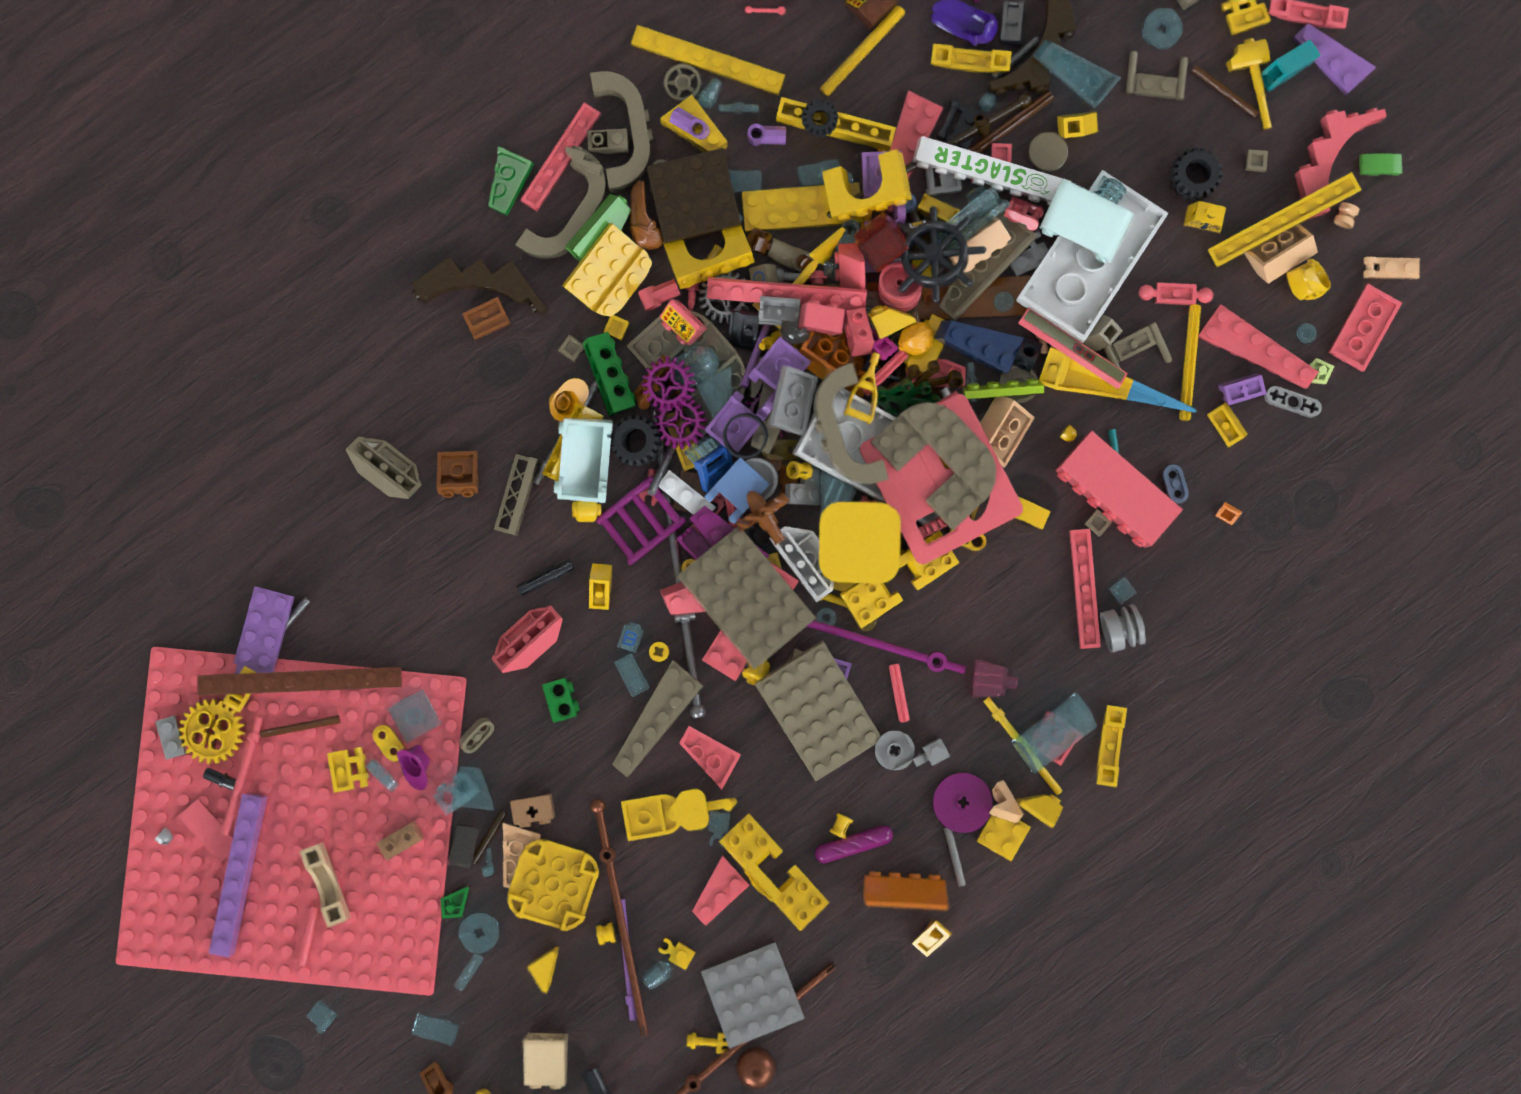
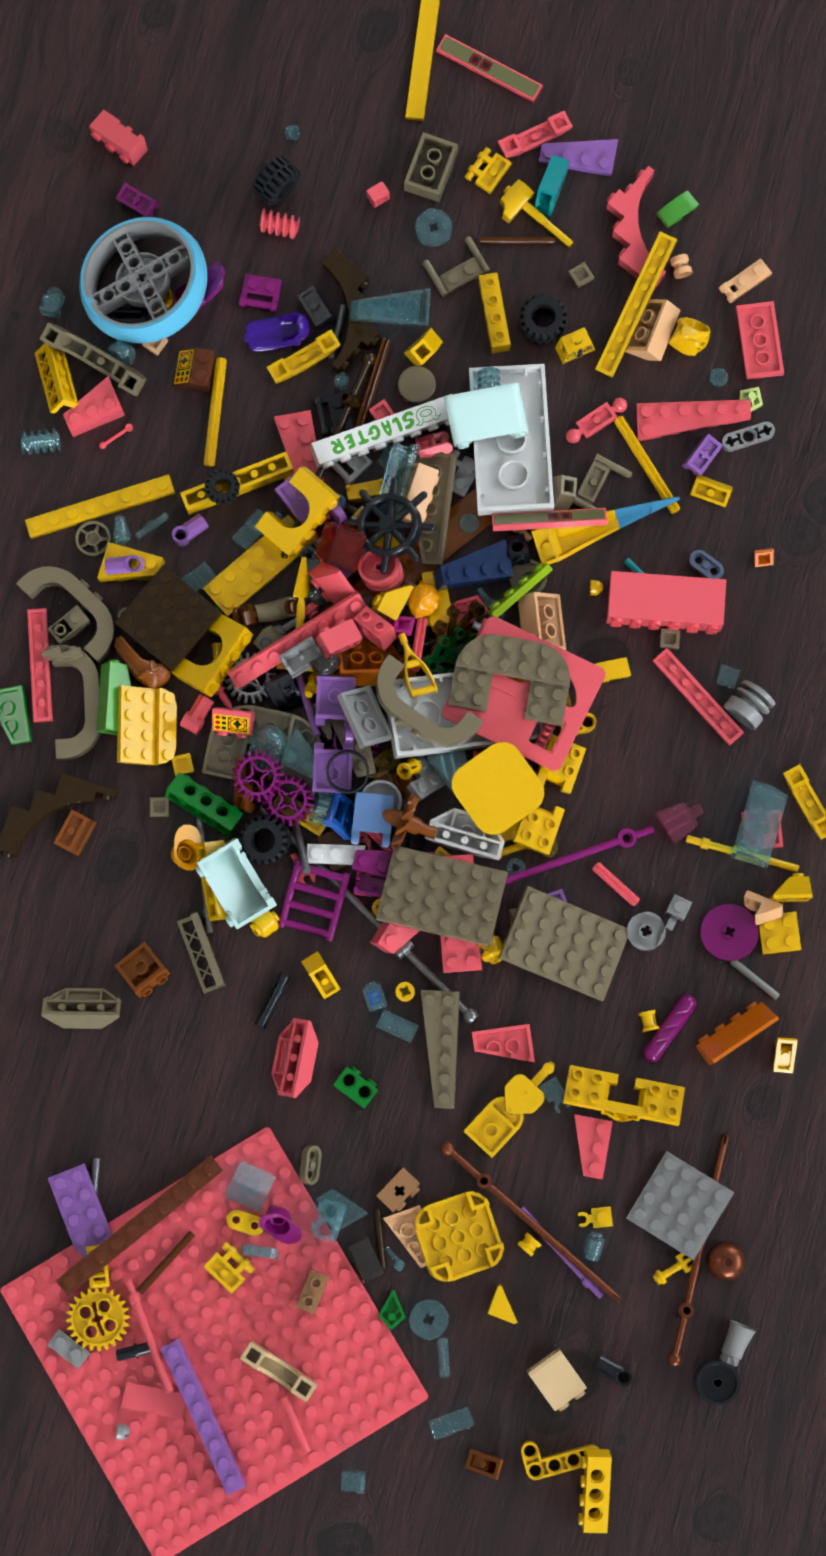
camera: 30 degrees left, 5 degrees down
(1159, 138) = (494, 313): none -> yellow brick

